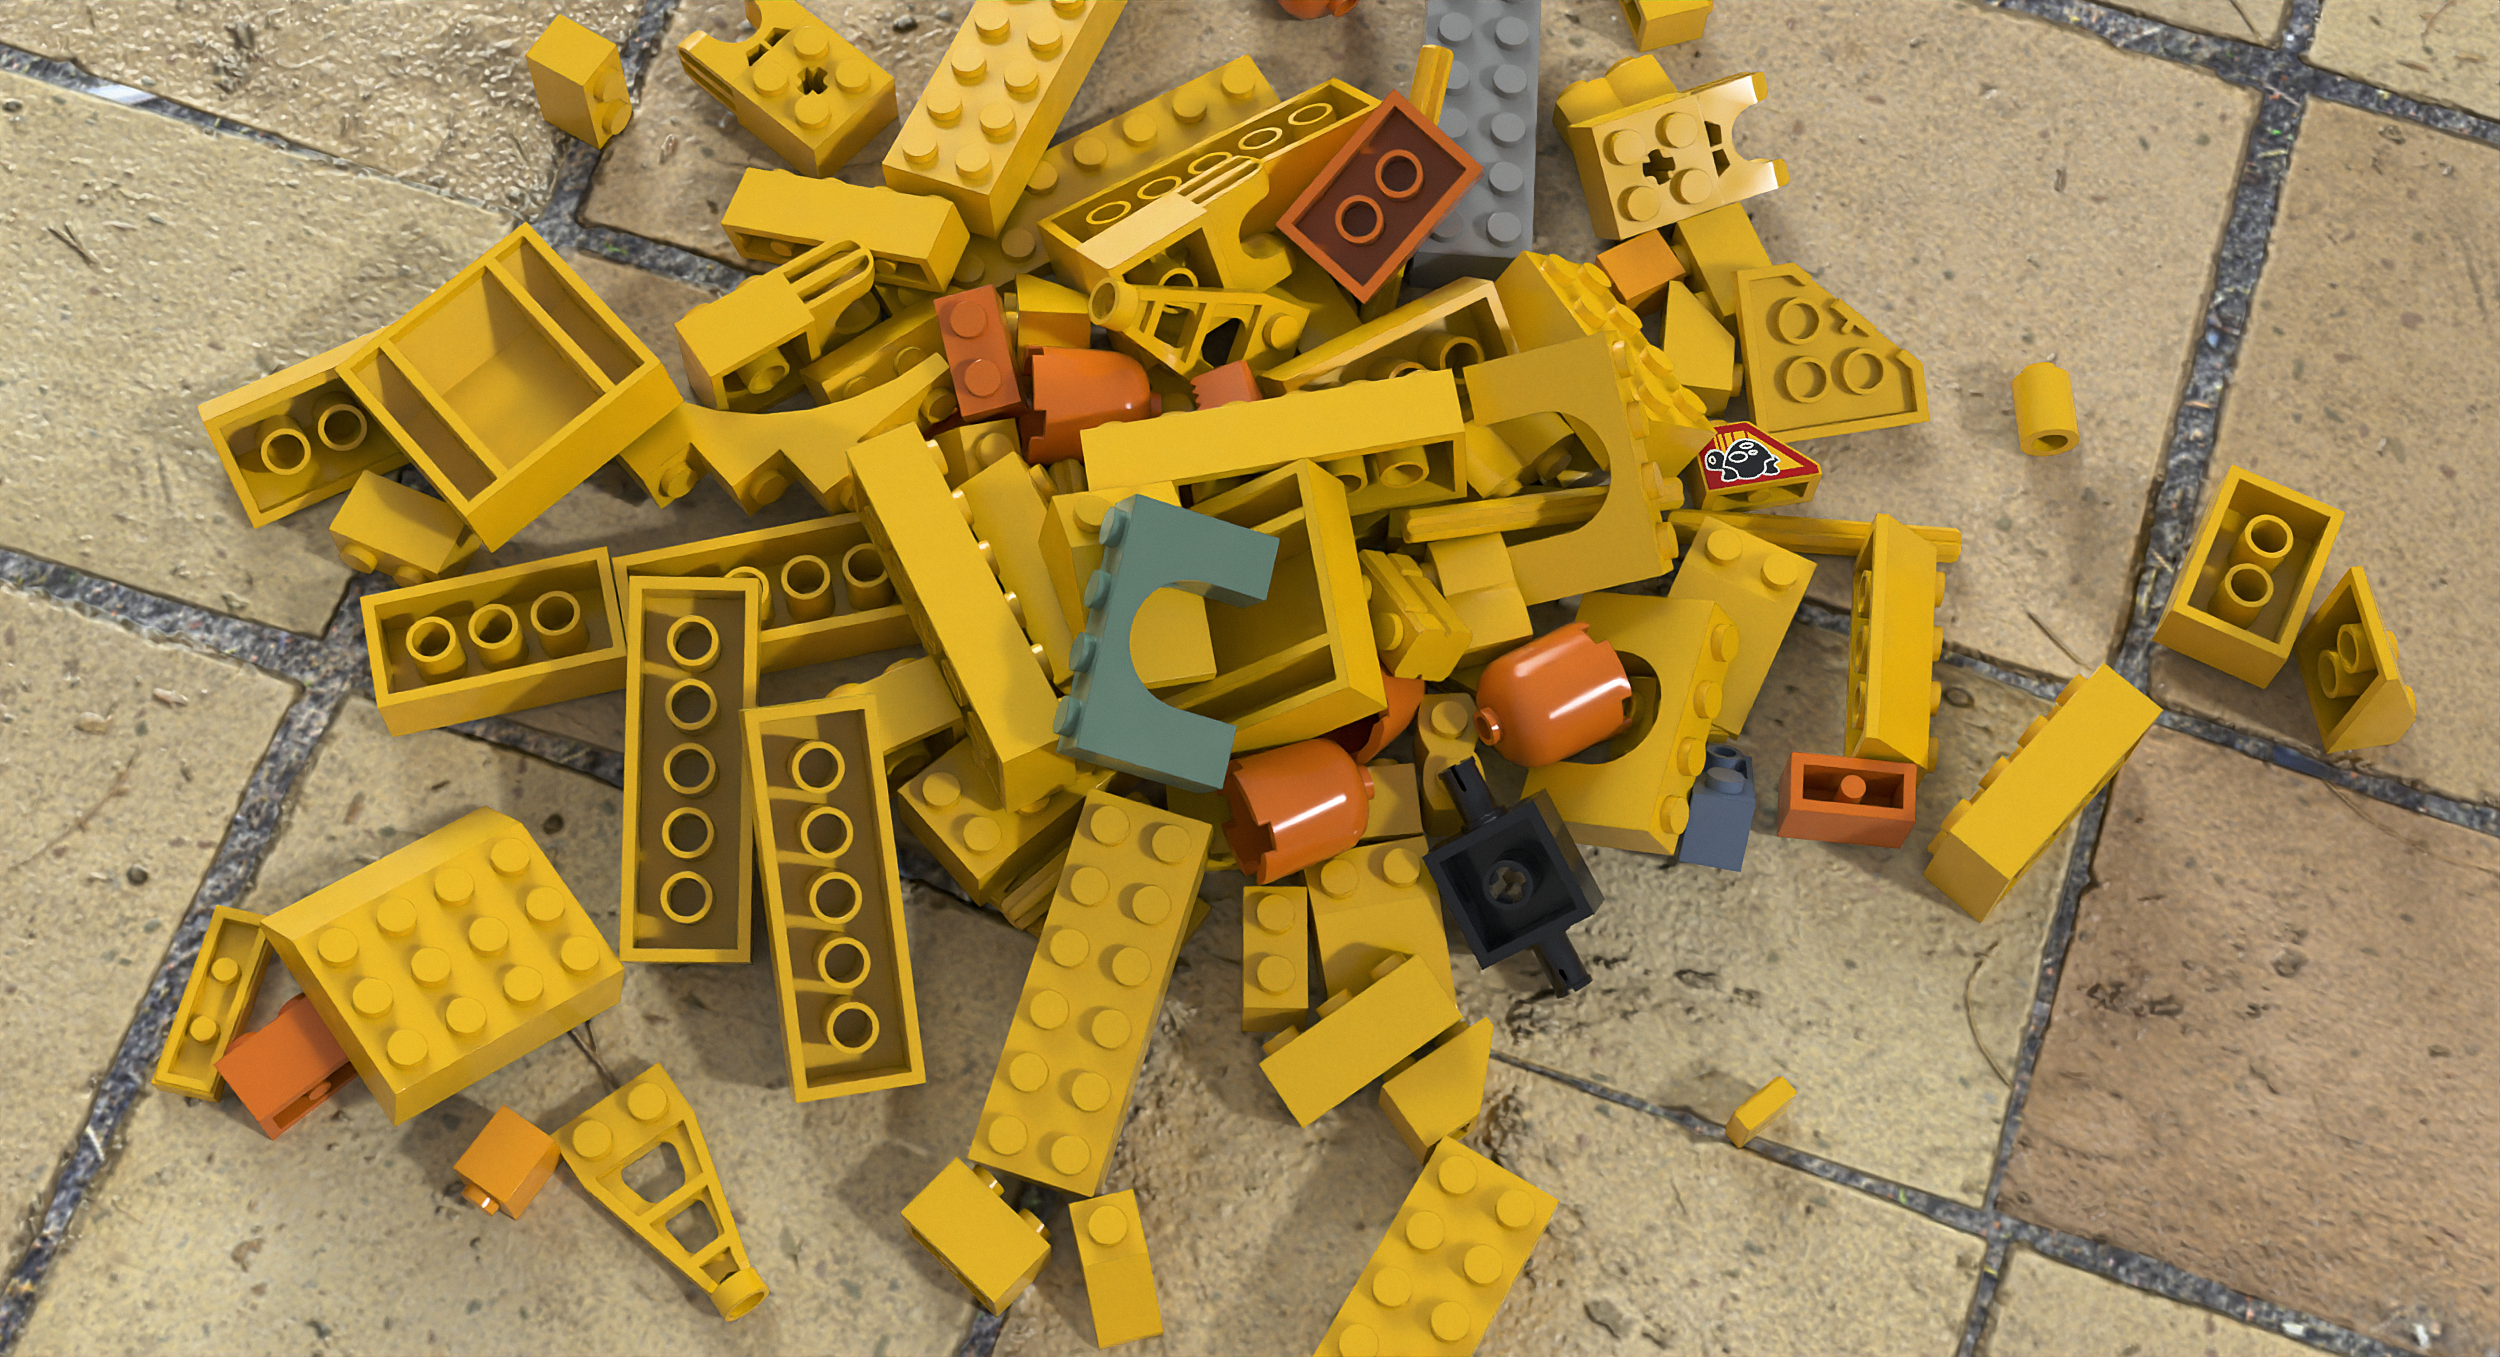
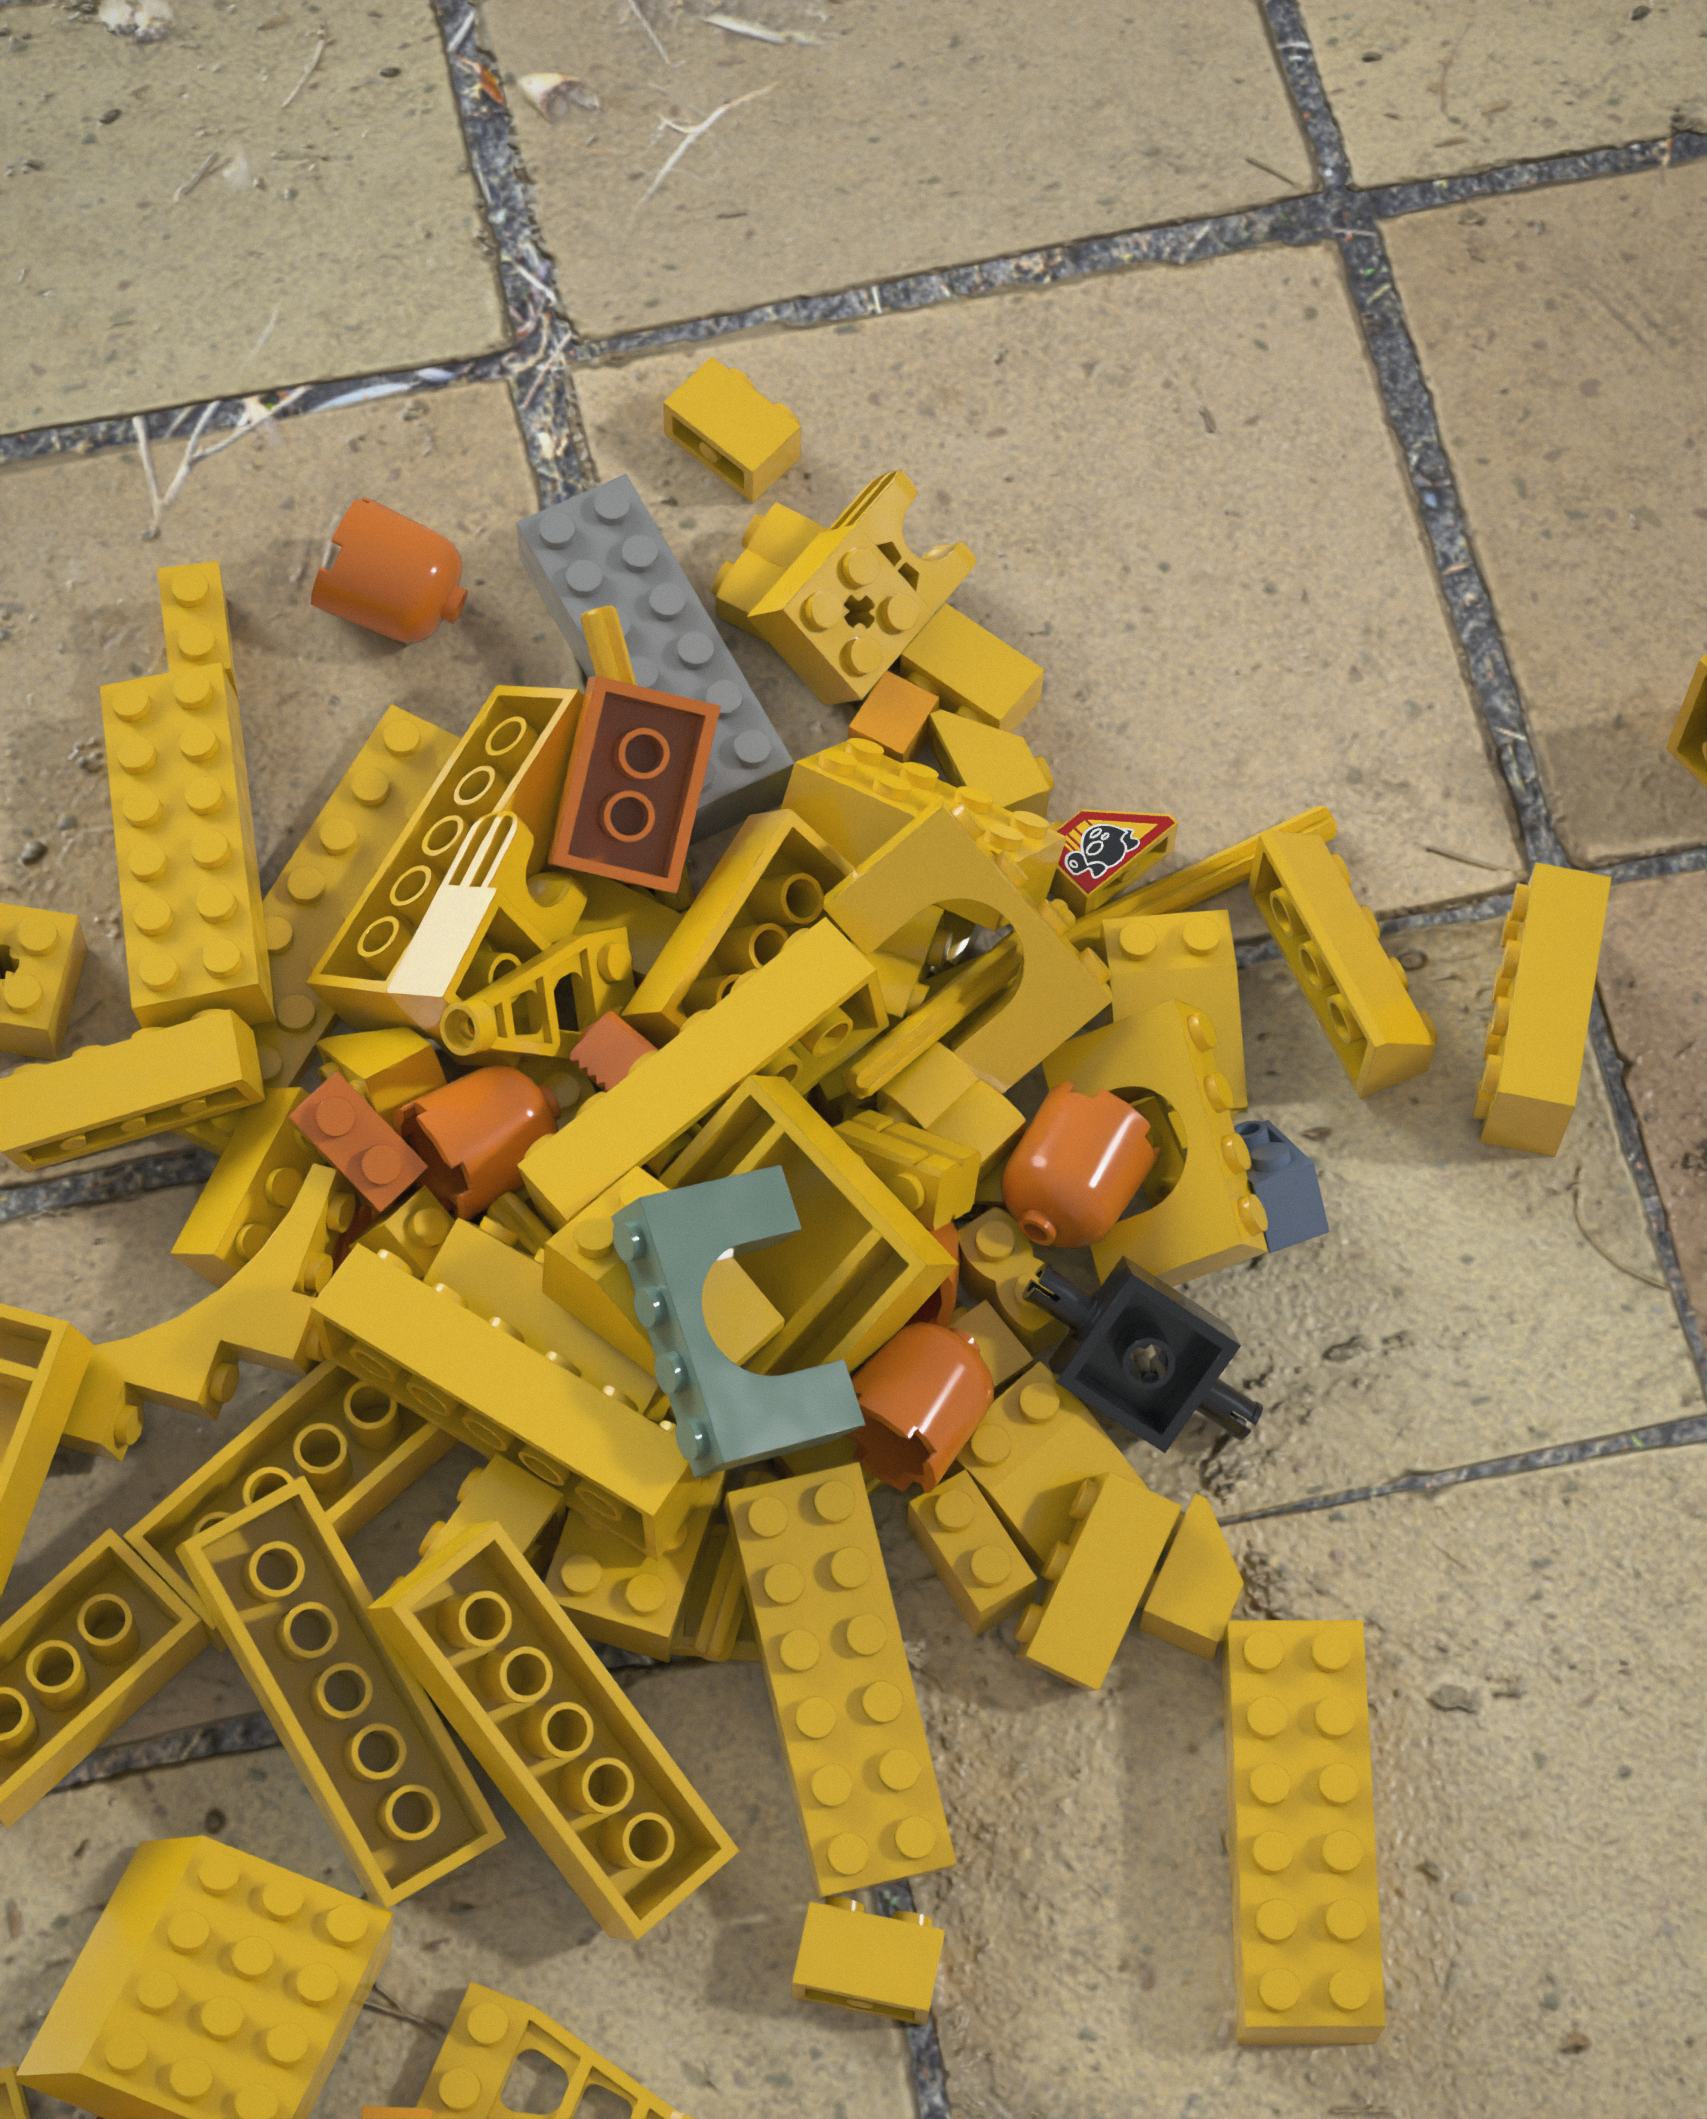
camera: 30 degrees left, 0 degrees up
(755, 340) = (126, 1224): yellow brick -> none
(1115, 1268) = (1009, 1916): yellow slope -> none
(1759, 1111) = (1476, 1438): yellow tile -> none
(1817, 361) = (1108, 716): yellow plate -> none
(1846, 800) = (1381, 1112): orange brick -> none
(2045, 410) = (1330, 650): yellow brick -> none
(2249, 577) = (1599, 709): yellow brick -> none

